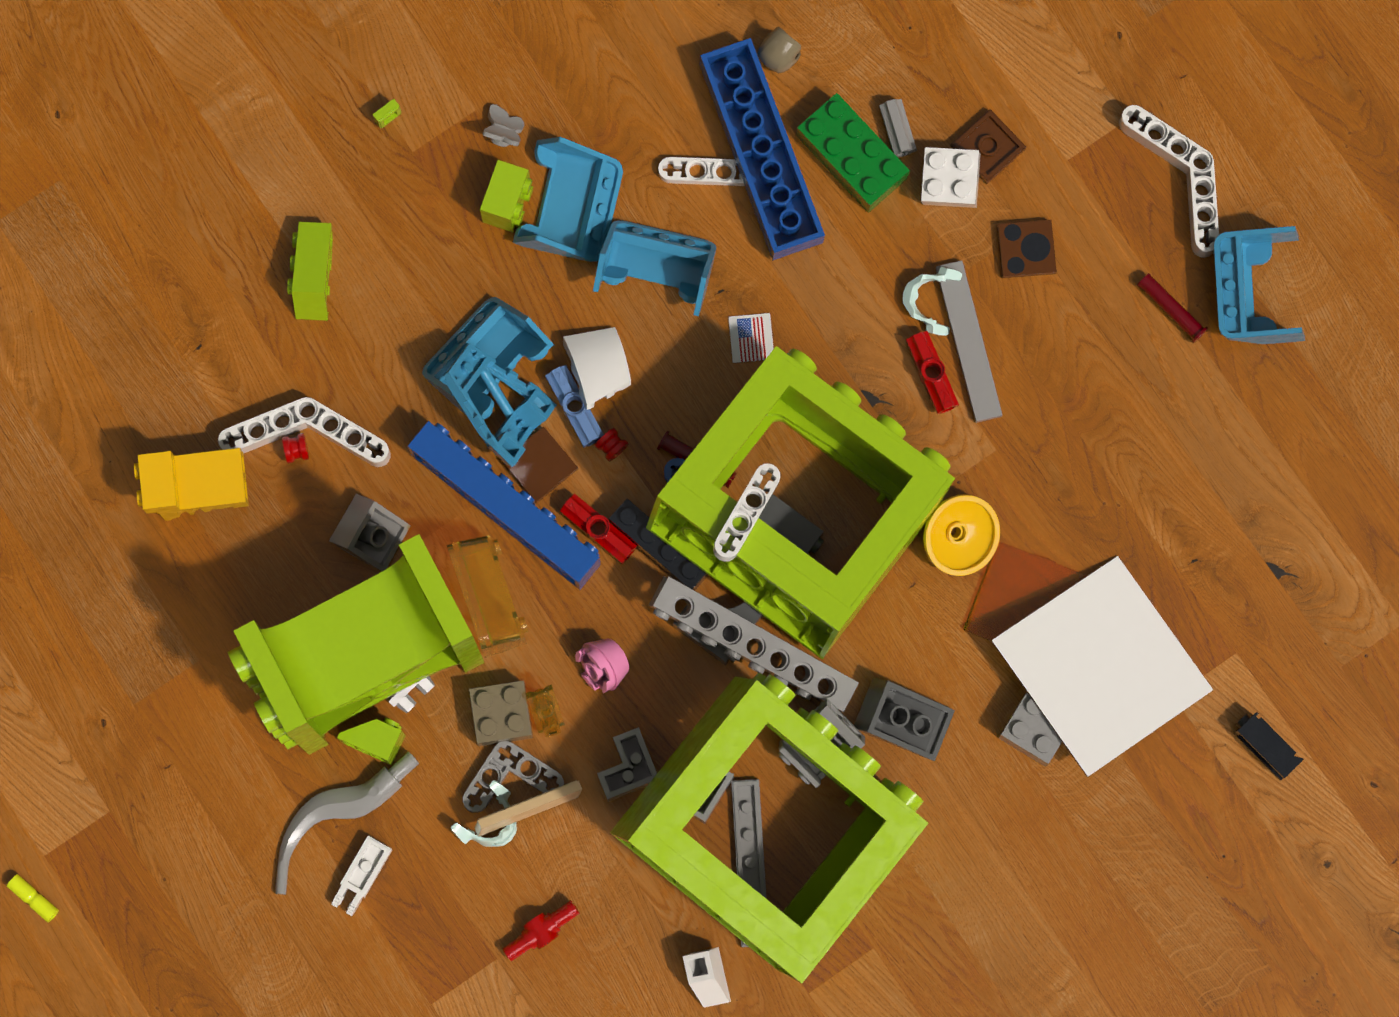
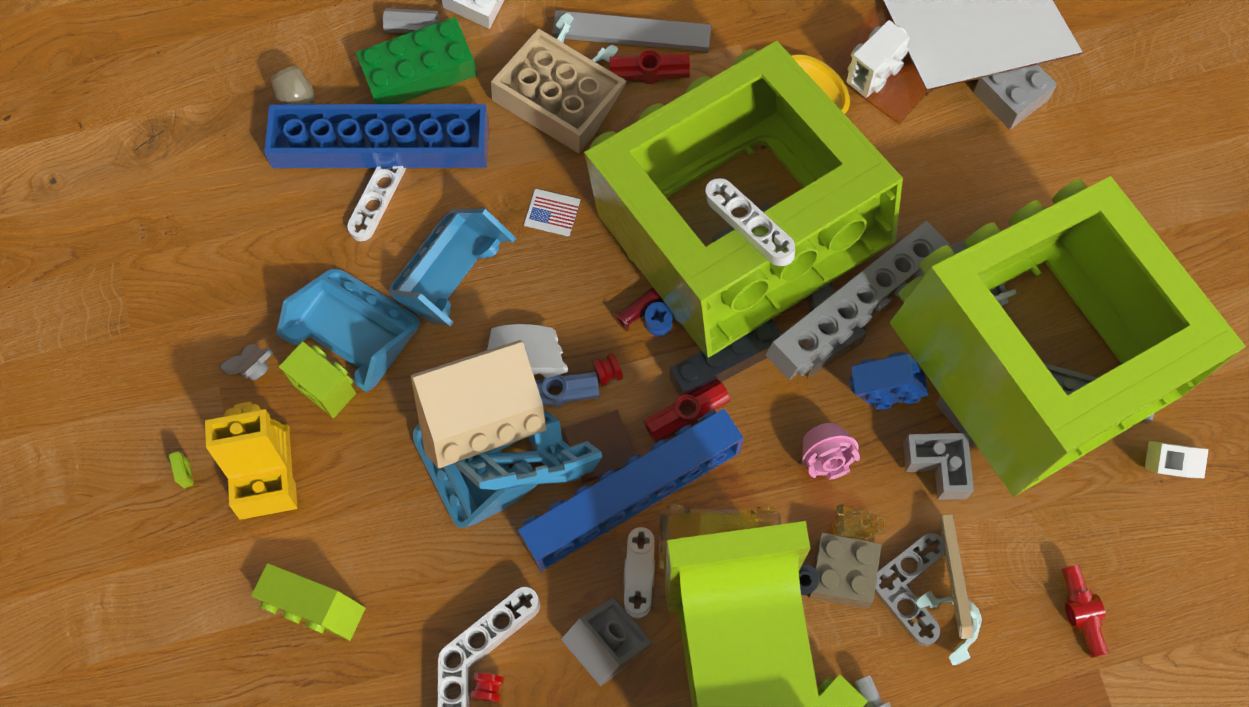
camera: 65 degrees left, 10 degrees down
(413, 175) = (254, 458): none -> yellow brick
(439, 535) = (639, 572): none -> white piece
(475, 676) = (808, 579): none -> black cone
(523, 344) = (477, 404): none -> tan slope
(682, 693) = (889, 381): none -> blue brick
(872, 295) = (557, 90): none -> tan slope
(903, 718) = (968, 199): dark grey slope -> none
(1012, 585) = (877, 58): none -> white brick

